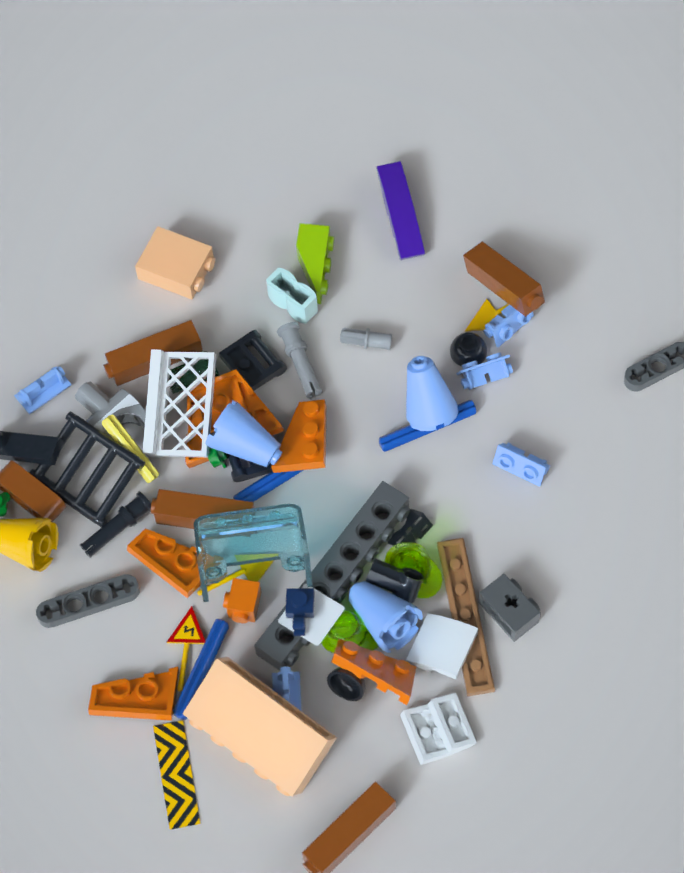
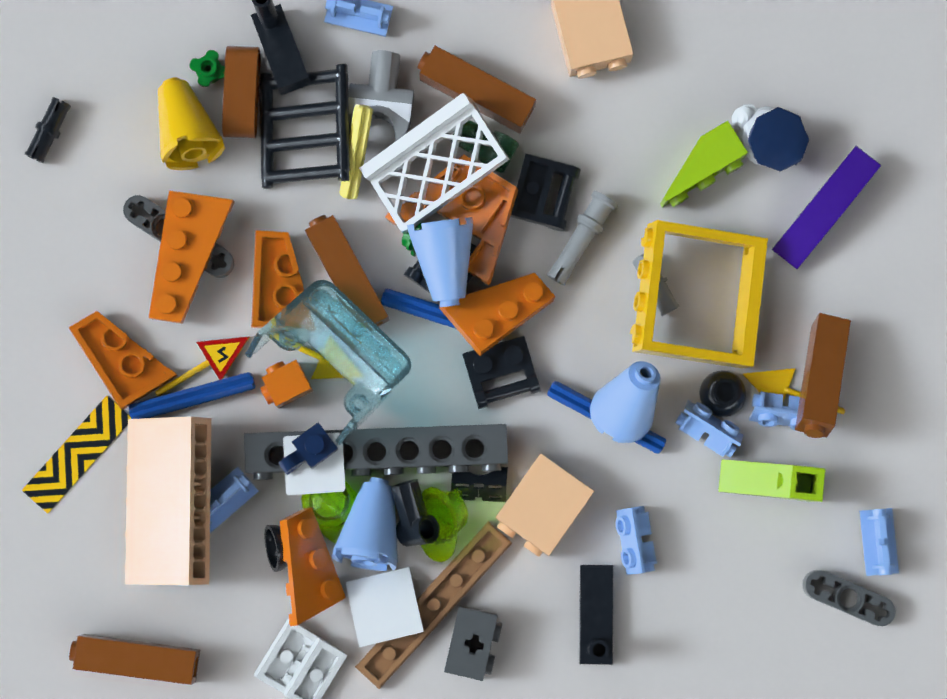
camera: 45 degrees right, 20 degrees up
(102, 599) = (185, 250): none -> orange wing
(127, 517) = (287, 204): black pin -> none
(292, 295) = (642, 183): light aqua brick -> none
(331, 206) = (771, 136): none -> dark blue piece
(338, 464) = (500, 361): none -> black plate
(418, 289) = (748, 296): none -> yellow window
(454, 500) = (543, 506): none -> light nougat brick
(548, 354) = (772, 480): none -> lime slope
(558, 526) = (596, 614): none -> black piece
(635, 325) = (879, 542): none -> light blue hinge

